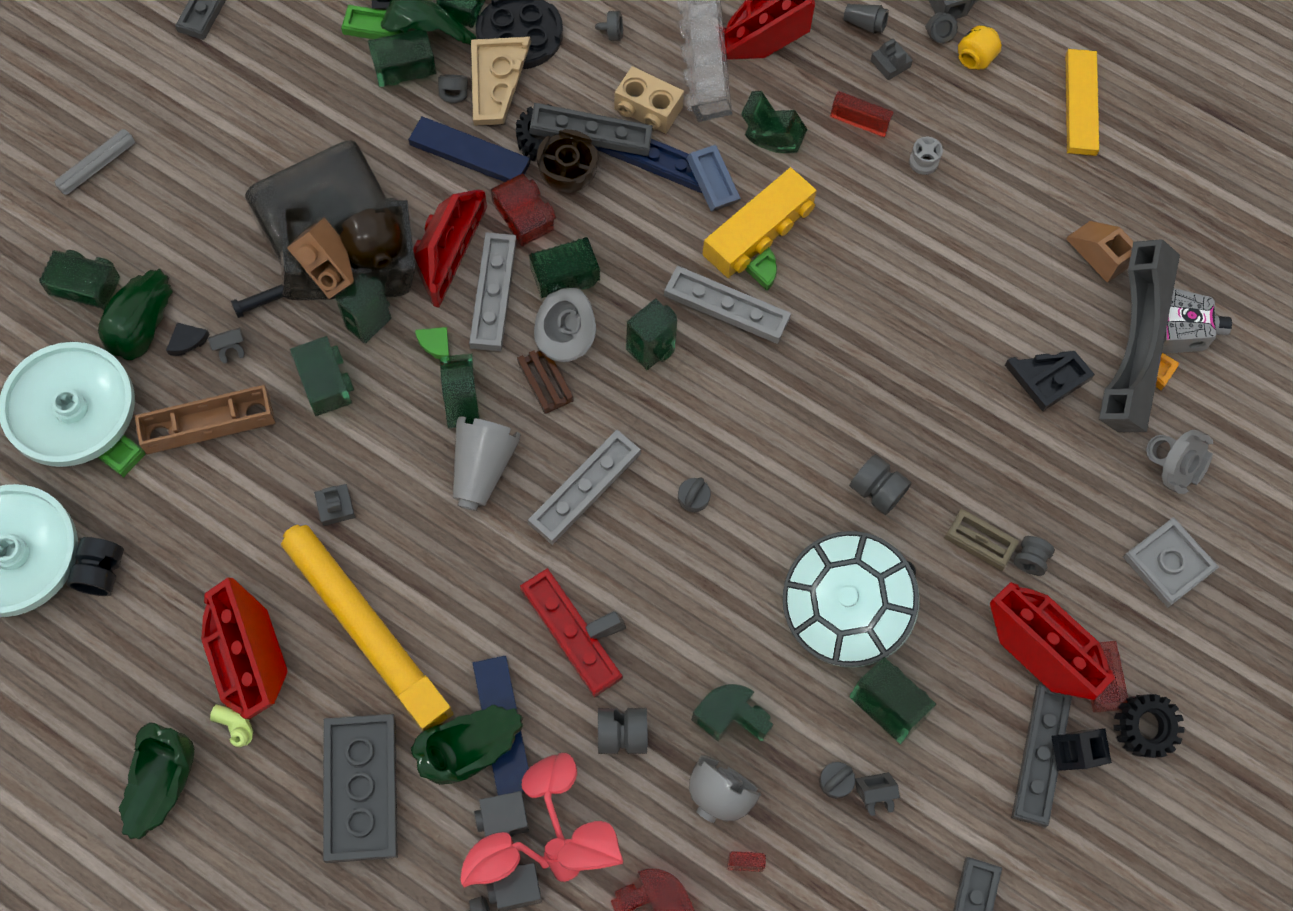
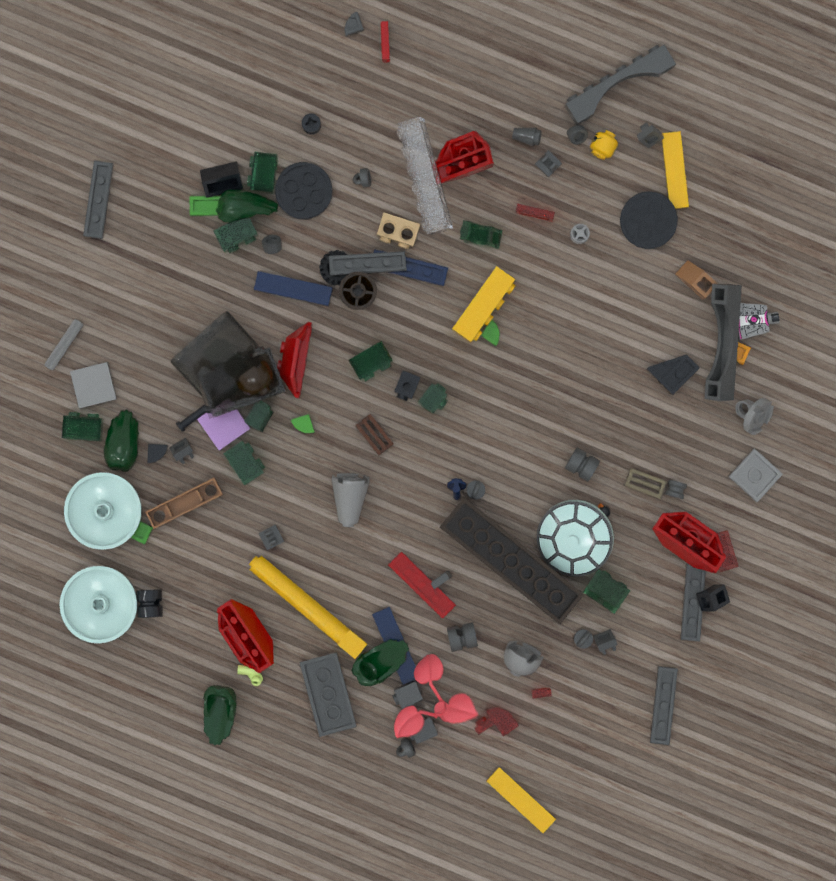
camera: 10 degrees left, 20 degrees up
(120, 226) = (93, 385): none -> light grey tile
(306, 321) = (224, 428): none -> lavender tile
(323, 257) = (231, 399): medium nougat slope -> none
(459, 388) = (326, 454): clear green brick -> none
(493, 292) = (331, 384): light grey plate -> none
(495, 76) = (297, 234): tan wing -> none
(523, 209) = (337, 325): clear red brick -> none
(565, 325) = (379, 402): light grey hat -> none
(584, 487) = (412, 498): light grey plate -> none
(614, 312) = (406, 385): none -> black brick
(663, 481) = (456, 485): none -> dark blue plate
(713, 178) = (449, 279): sand blue tile -> none
(727, 304) = (473, 364): light grey plate -> none
(728, 705) = (516, 611): clear green brick -> none
(735, 617) = (511, 561): none -> dark brown brick
(1035, 157) = (648, 220): none -> black tile
(1051, 45) = (650, 135): none -> dark grey tile
(1167, 725) = (737, 576): black tyre -> none

